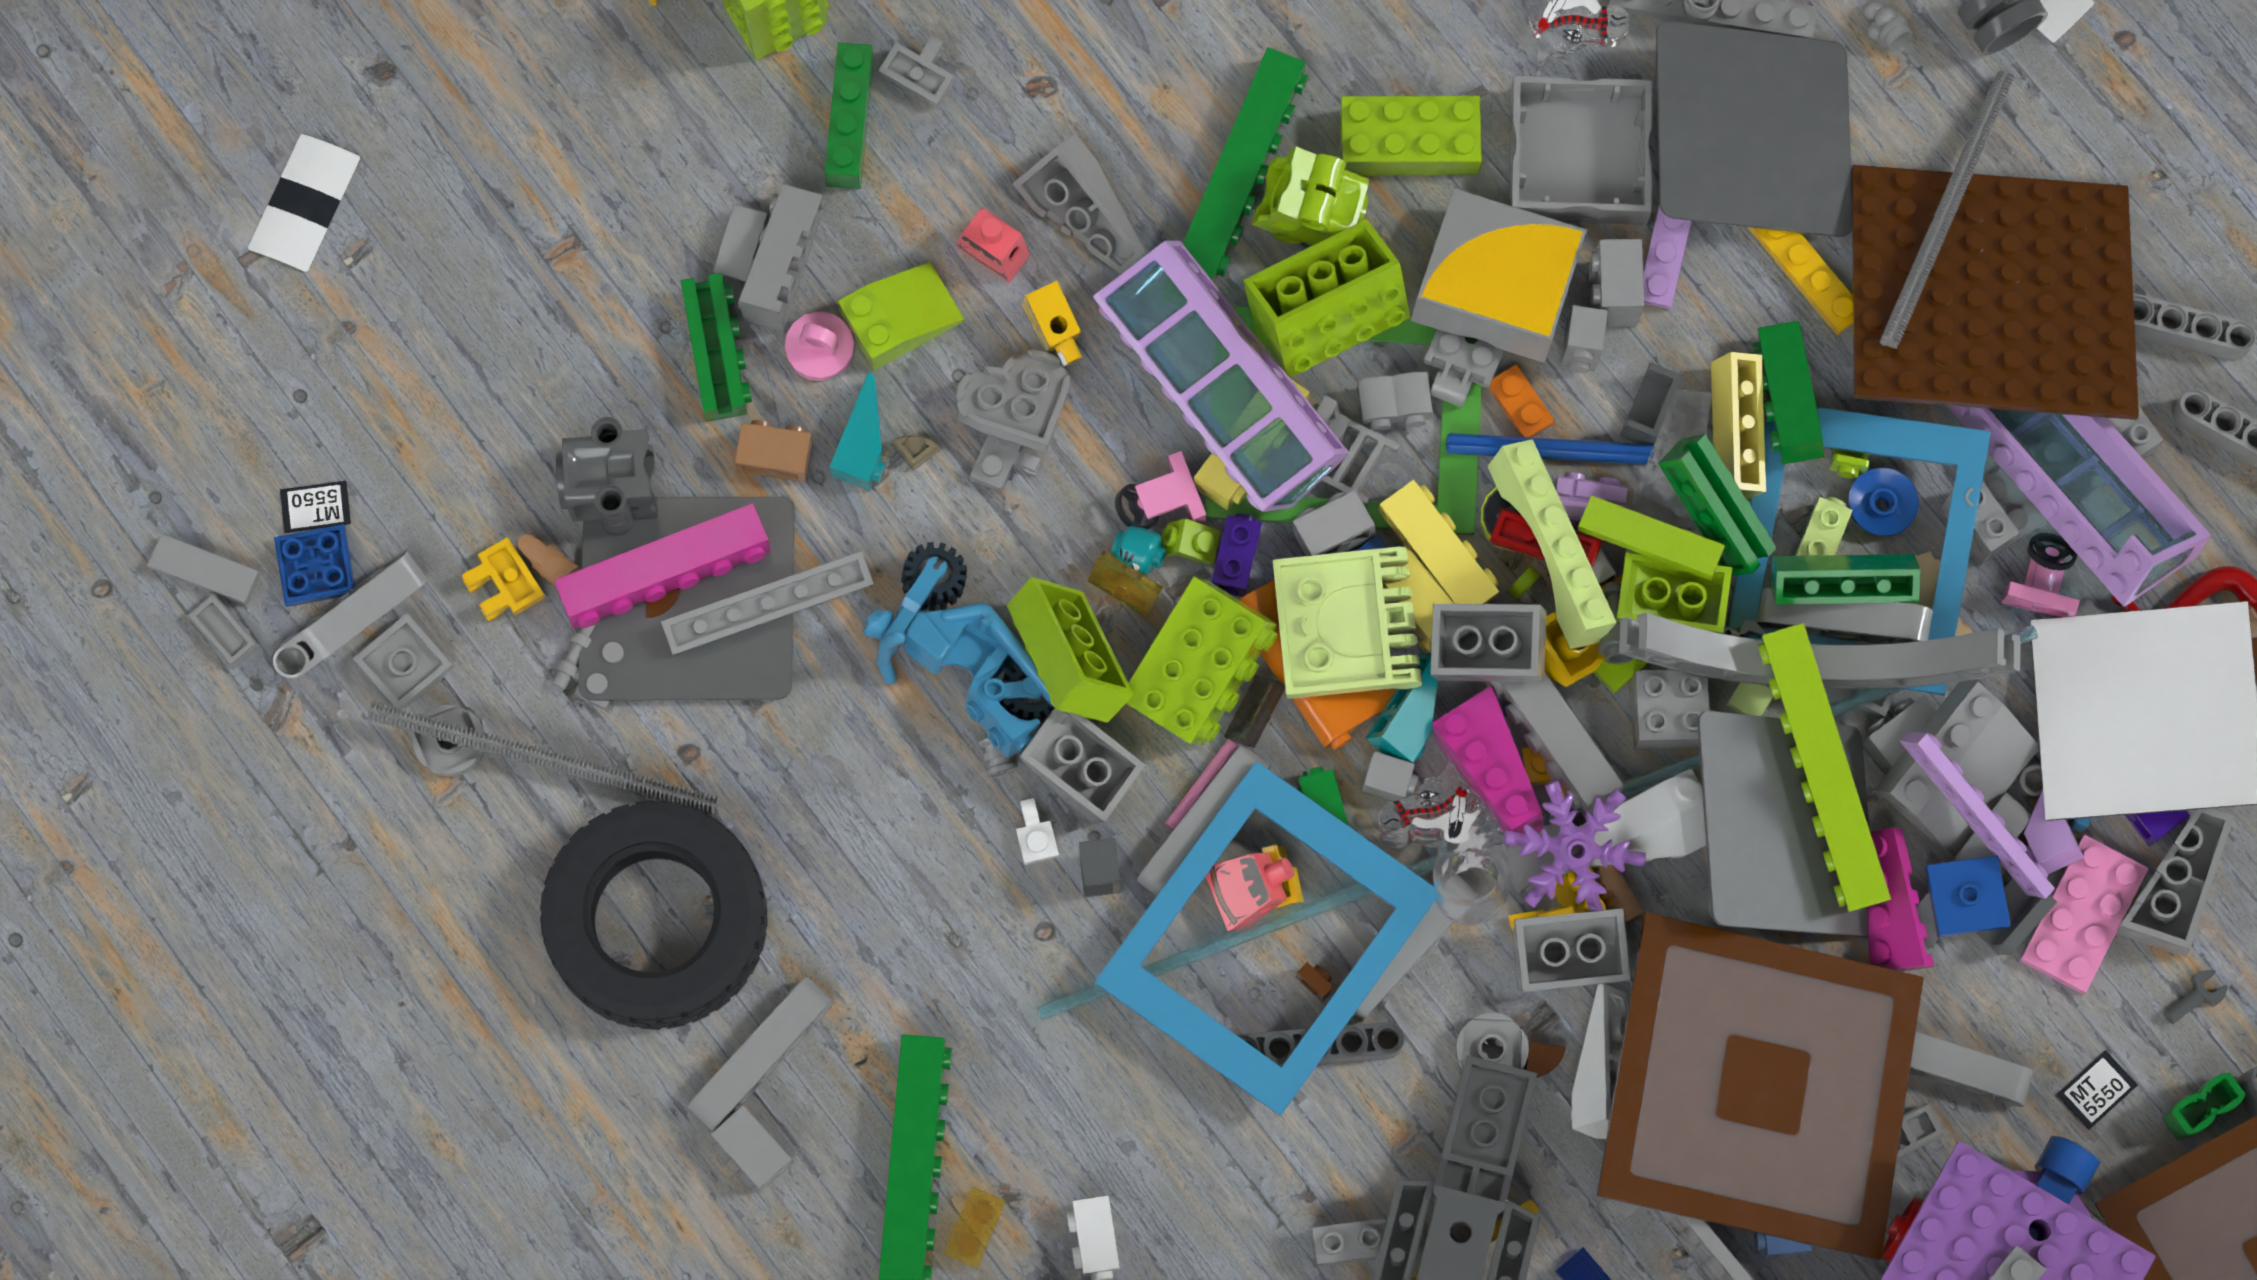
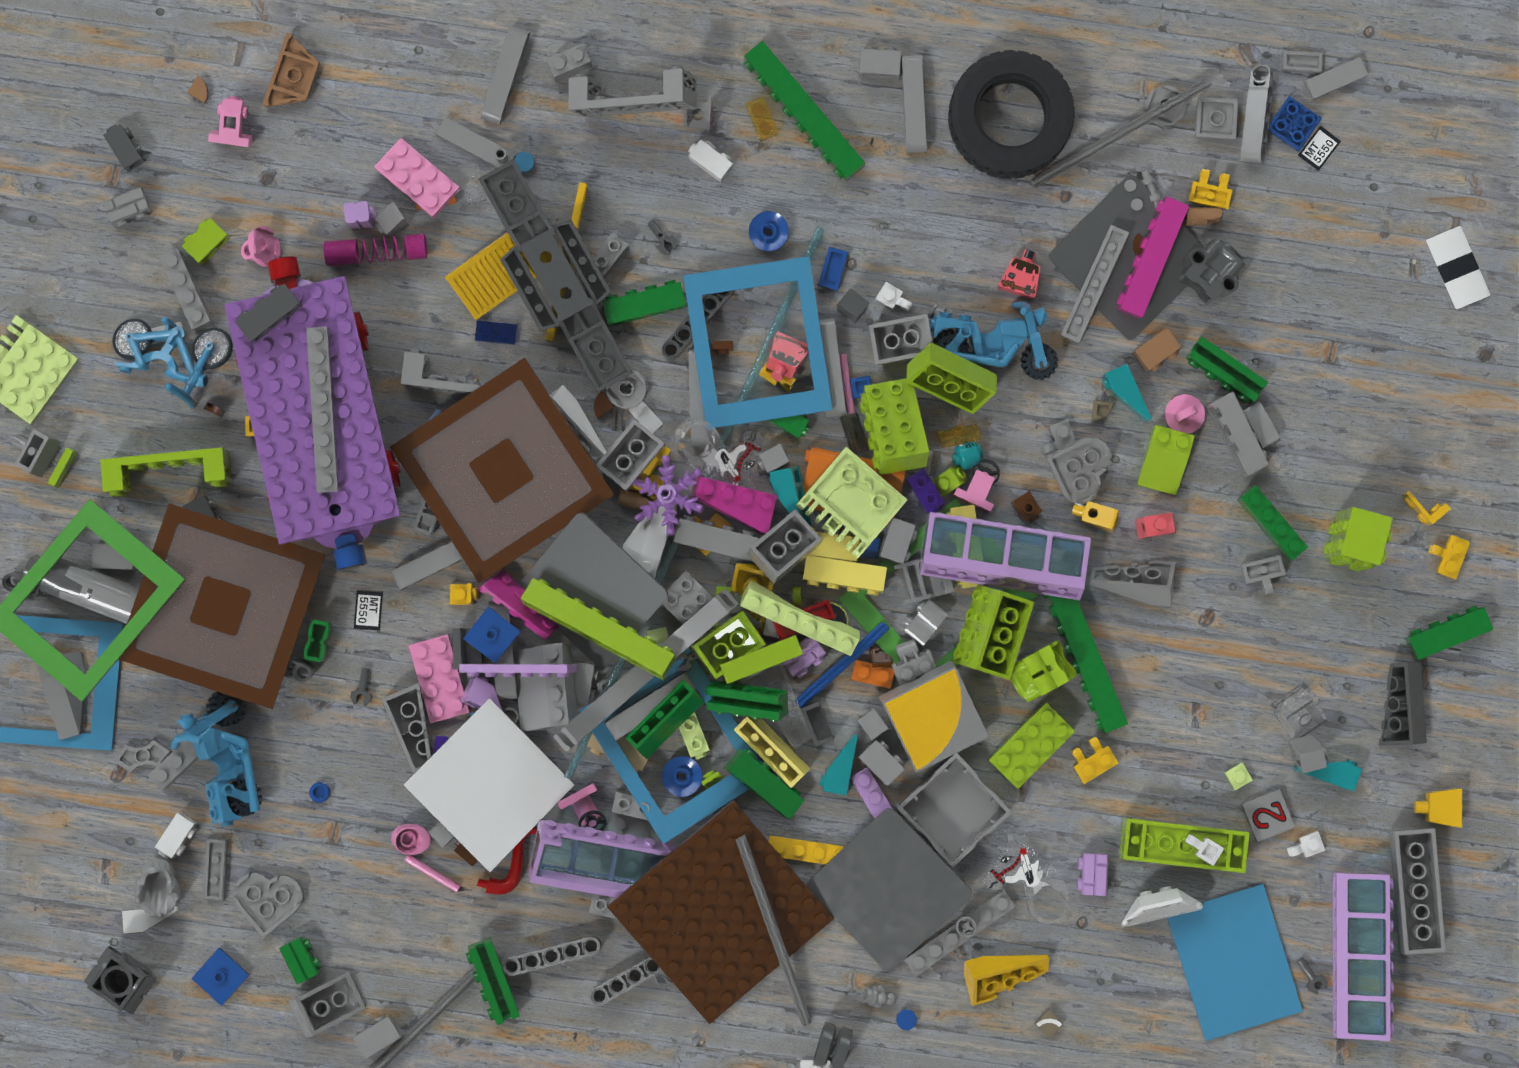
camera: 135 degrees right, 10 degrees up
(848, 703) = (1021, 276): none -> torso
(1074, 946) = (833, 268): none -> blue tile
(1115, 1053) = (771, 221): none -> blue dish
(1129, 417) = (1027, 507): none -> reddish brown brick
(1186, 763) = (858, 384): none -> blue tile
(1256, 1200) = (662, 238): none -> dark grey bar
(1350, 45) = (1096, 764): none -> yellow plate
(1362, 1133) = (644, 304): none -> green brick
(1493, 412) = (879, 658): none -> reddish brown tile
(1499, 988) = (646, 417): none -> white sticker
(1677, 326) = (838, 773): none -> teal slope
(1952, 988) = (463, 594): none -> yellow bracket

